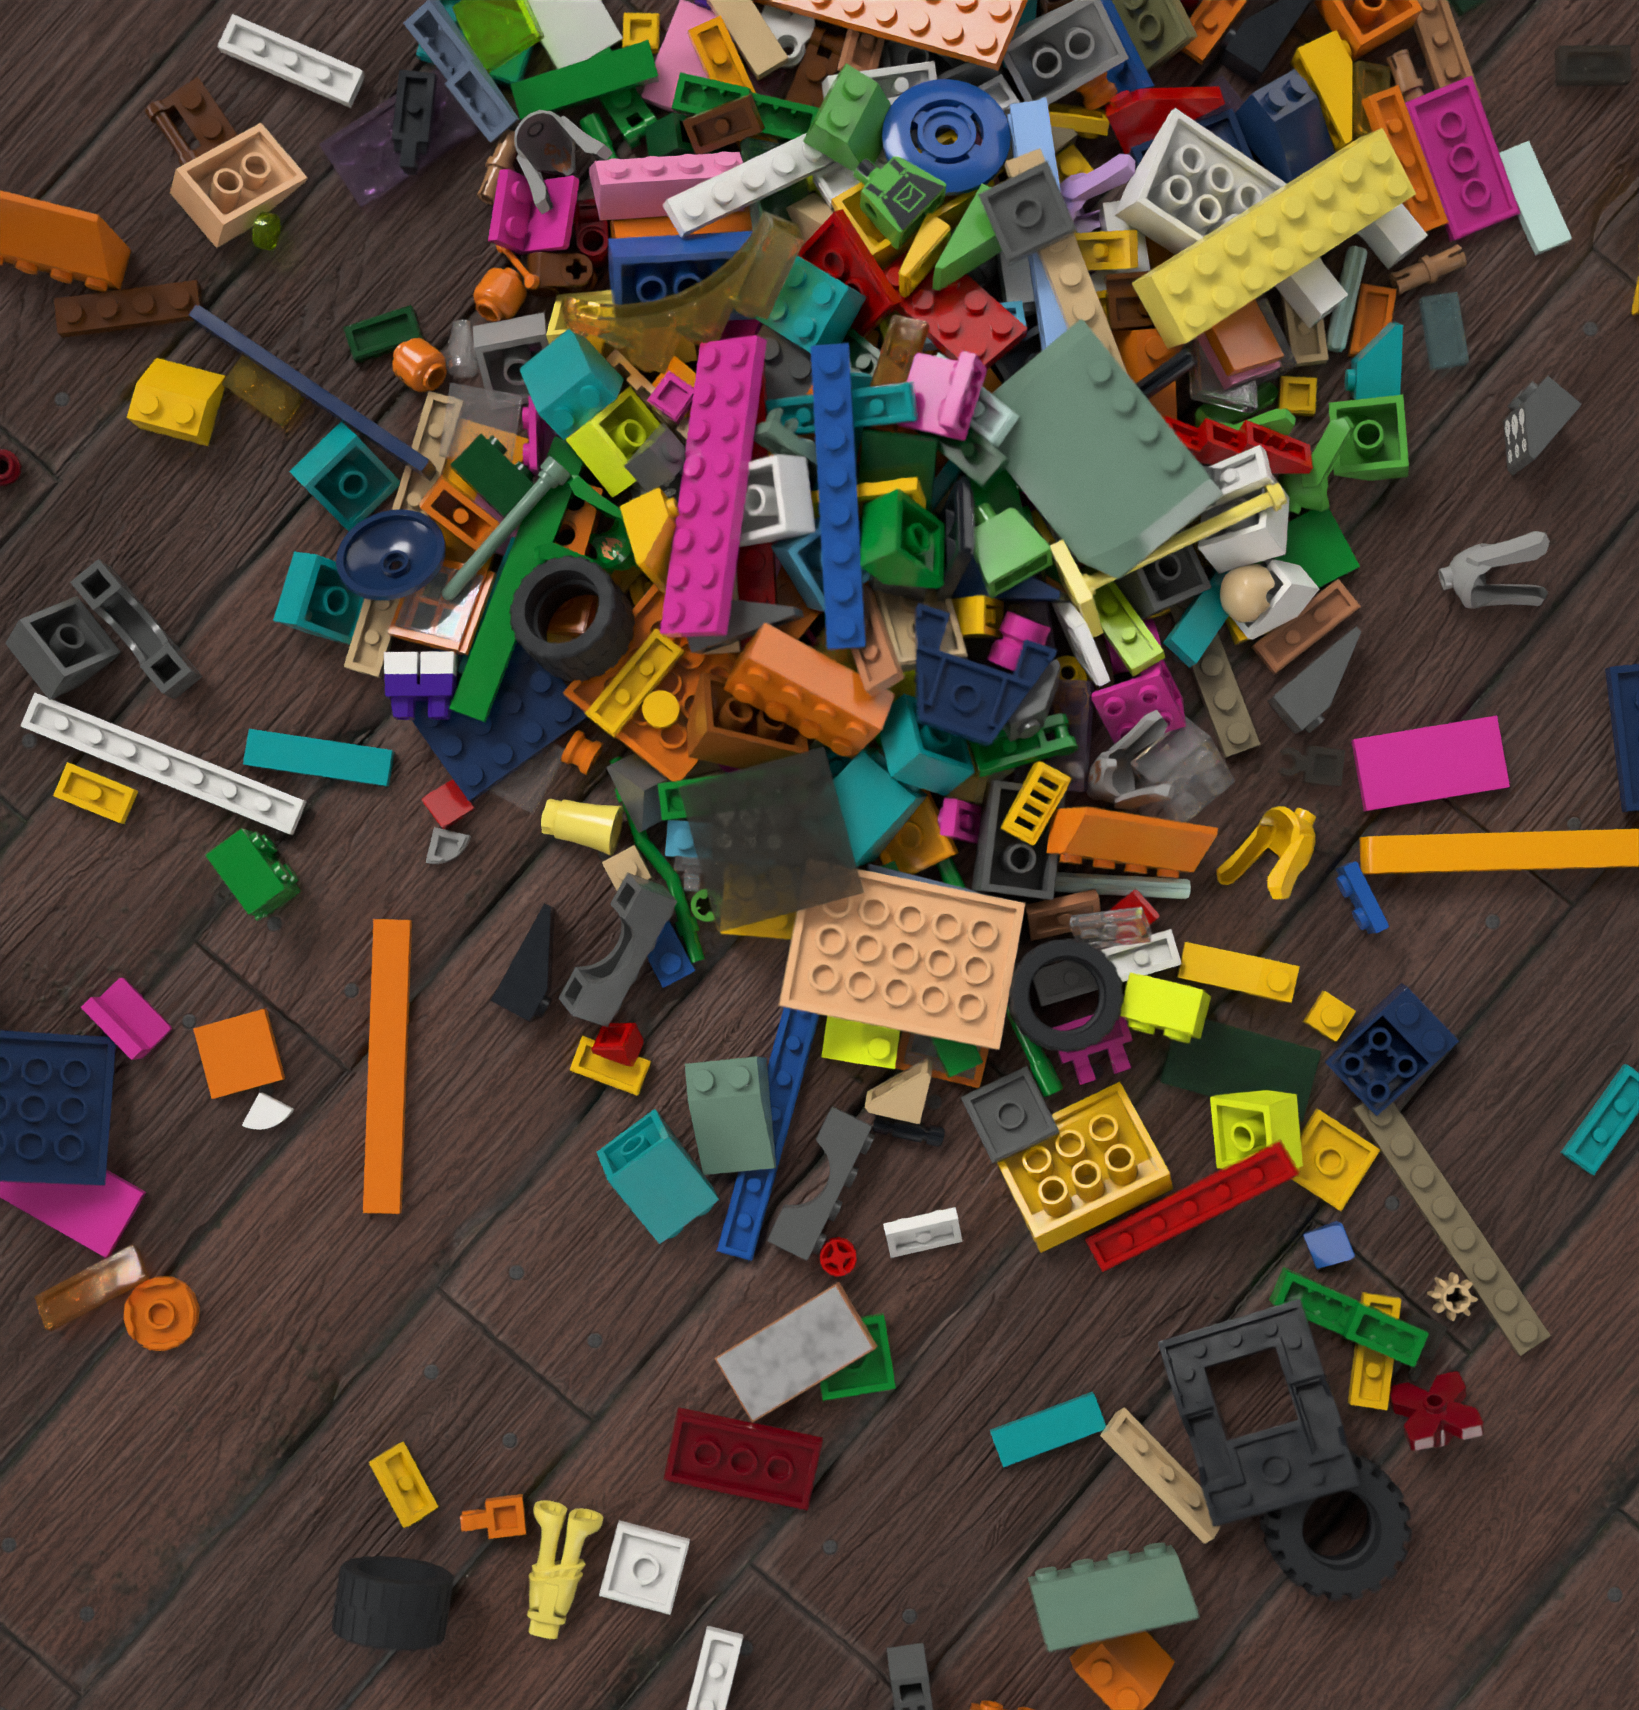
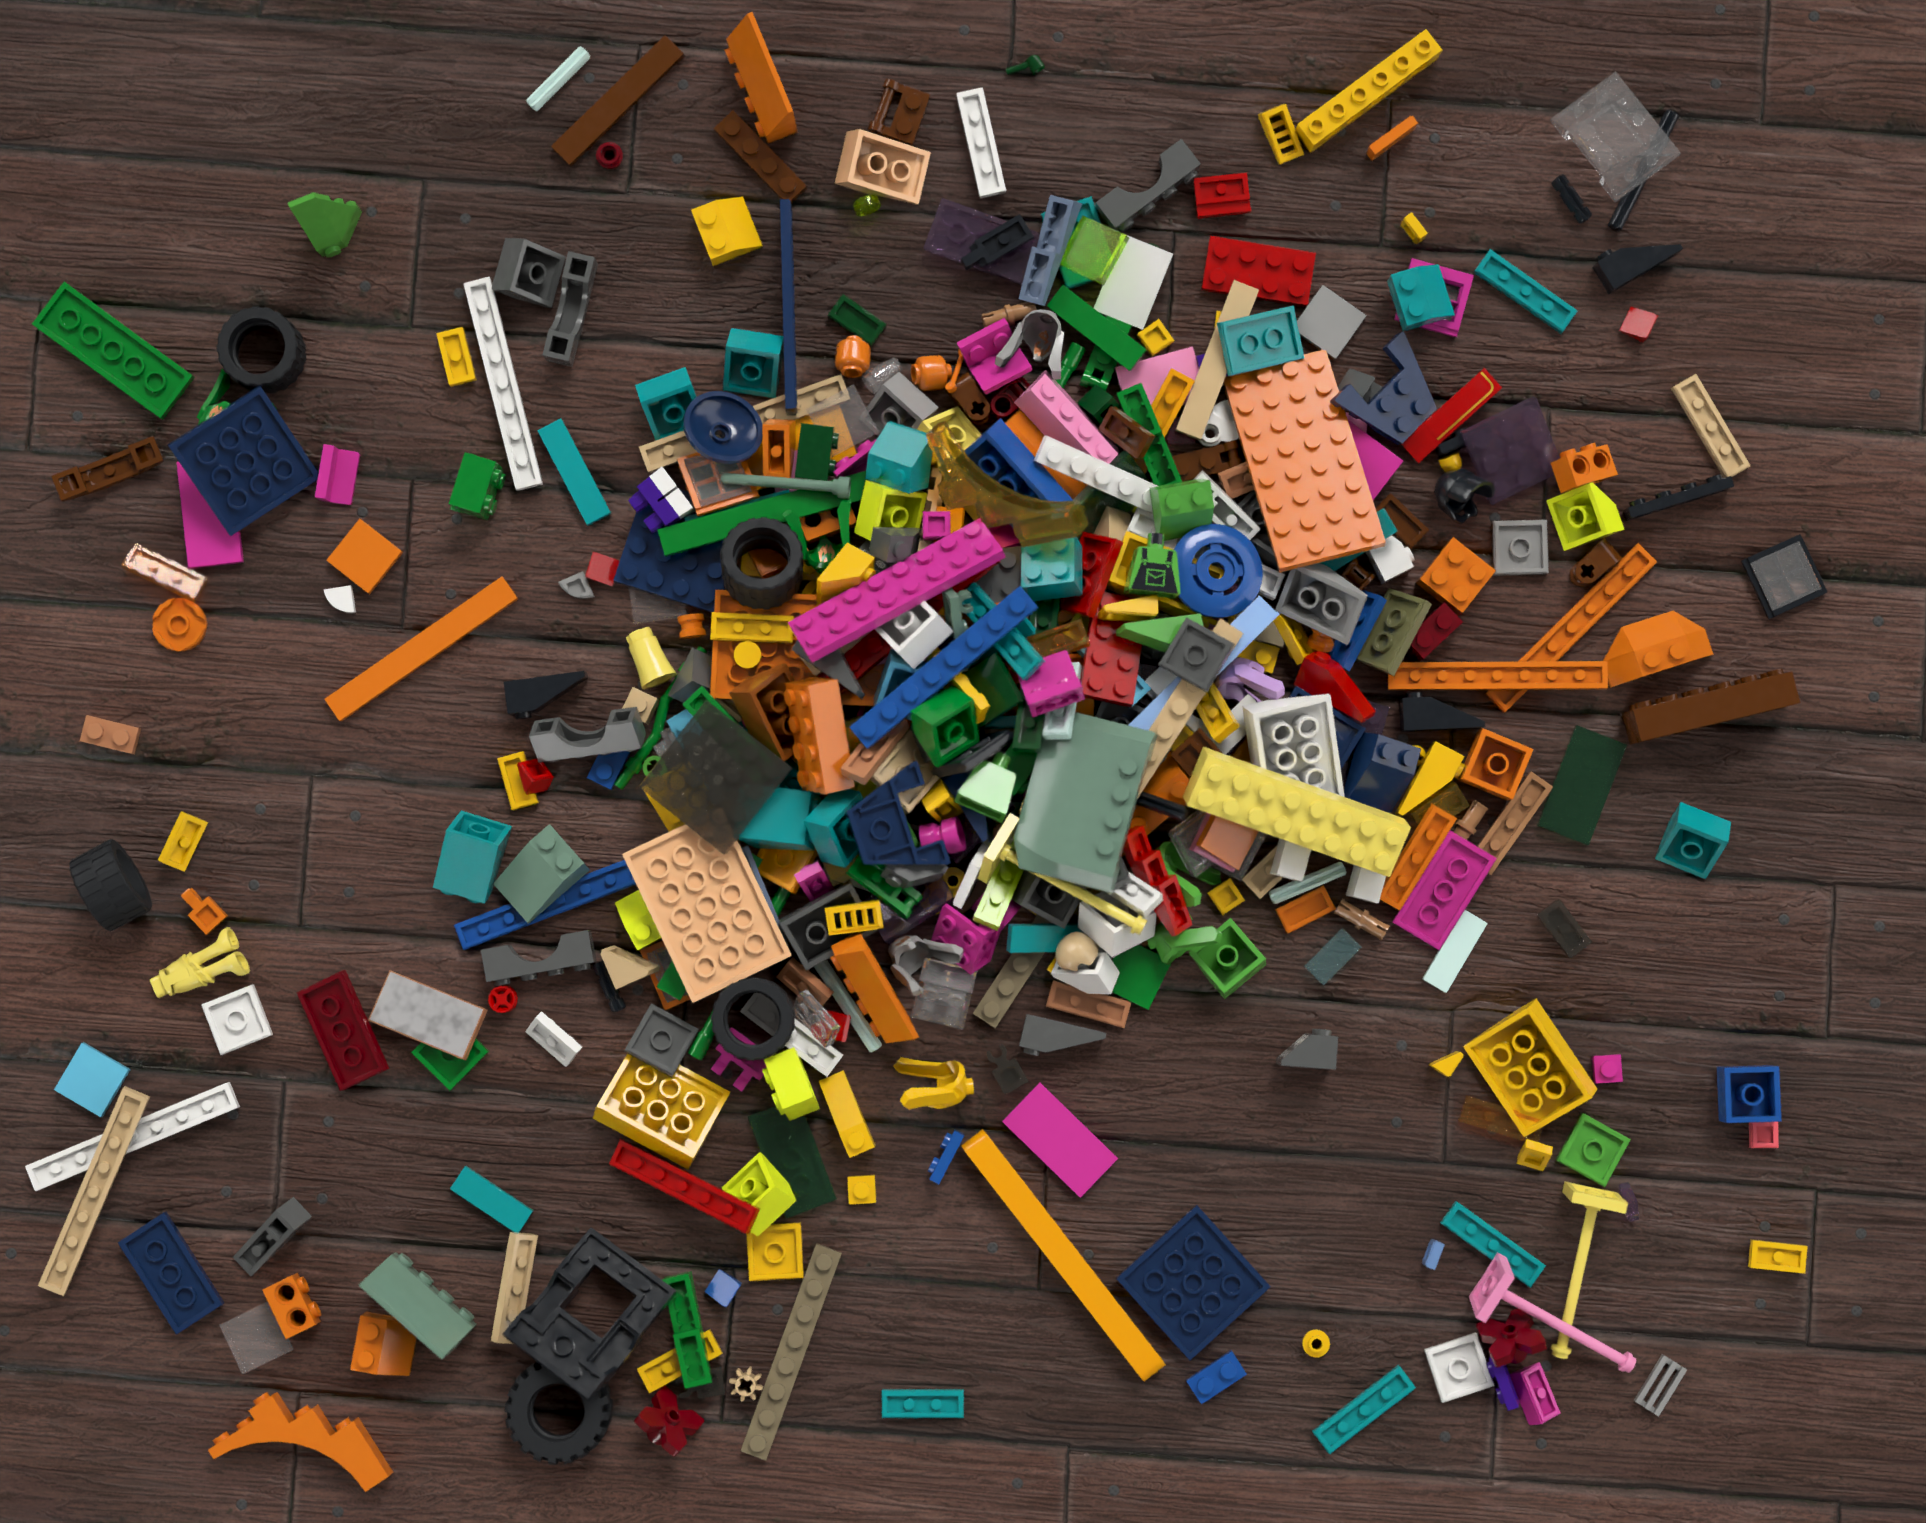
camera: 55 degrees right, 0 degrees up
(225, 1479) = (110, 734): none -> nougat plate
(263, 391) = (768, 274): clear yellow plate -> none
(1377, 366) = (1275, 931): teal slope -> none
(1391, 1049) = (867, 1239): dark blue slope -> none
(1468, 571) = (1191, 1079): light grey piece -> none

